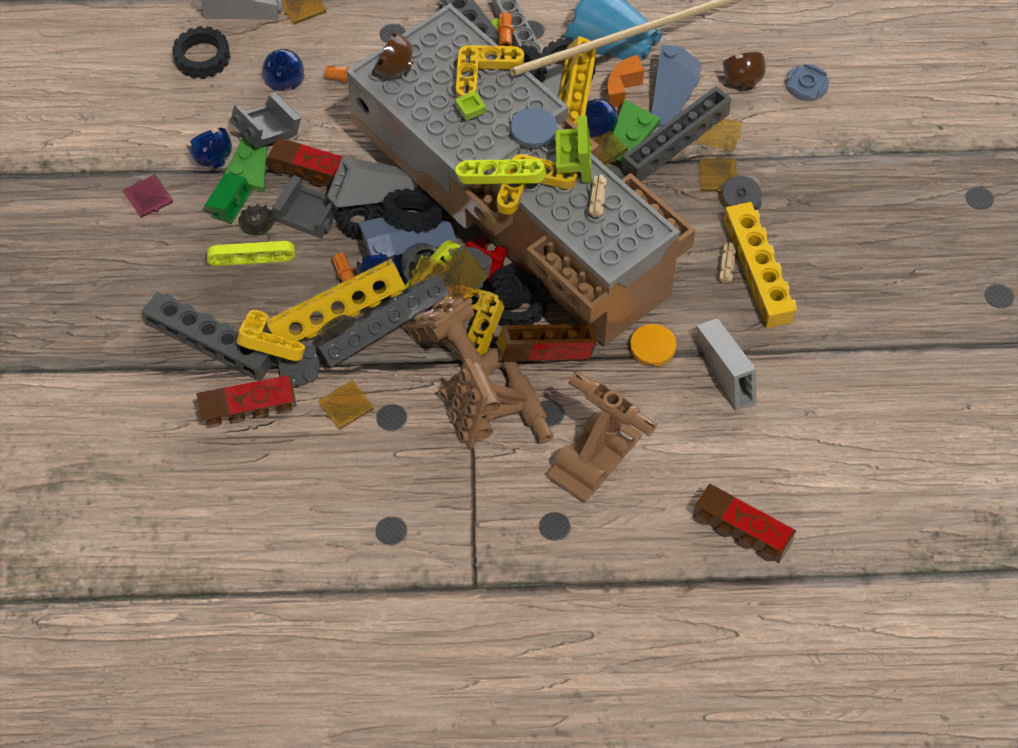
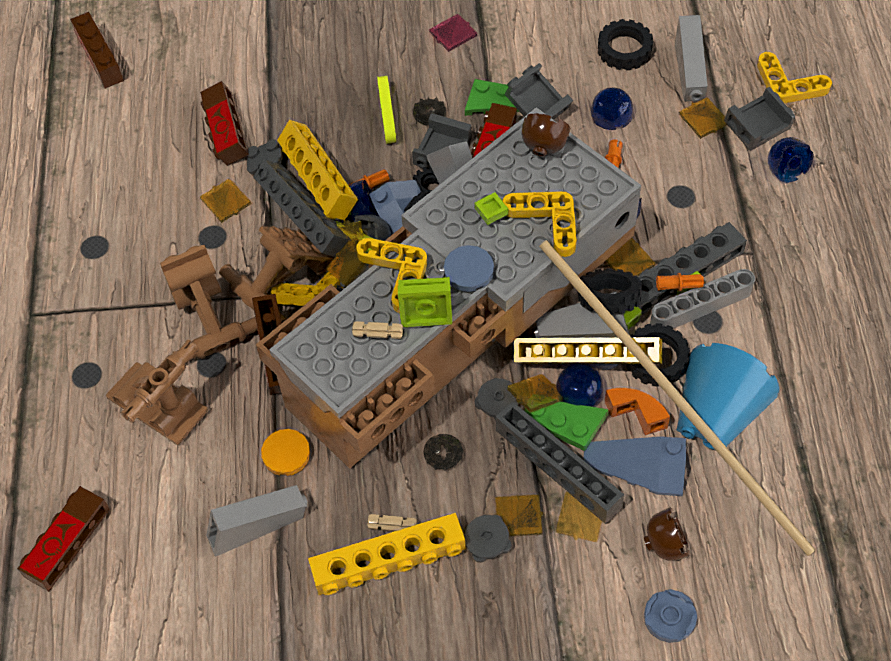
camera: 90 degrees right, 0 degrees up
(105, 539) = (97, 50): none -> reddish brown brick
(157, 315) = (294, 89): dark grey brick -> none
(211, 148) = (501, 63): clear blue cylinder -> none
(228, 197) = (449, 85): green hinge -> none
(253, 337) = (282, 115): yellow beam -> none
(336, 327) = (283, 168): clear smoke gear -> none
(473, 171) = (398, 236): neon yellow beam -> none

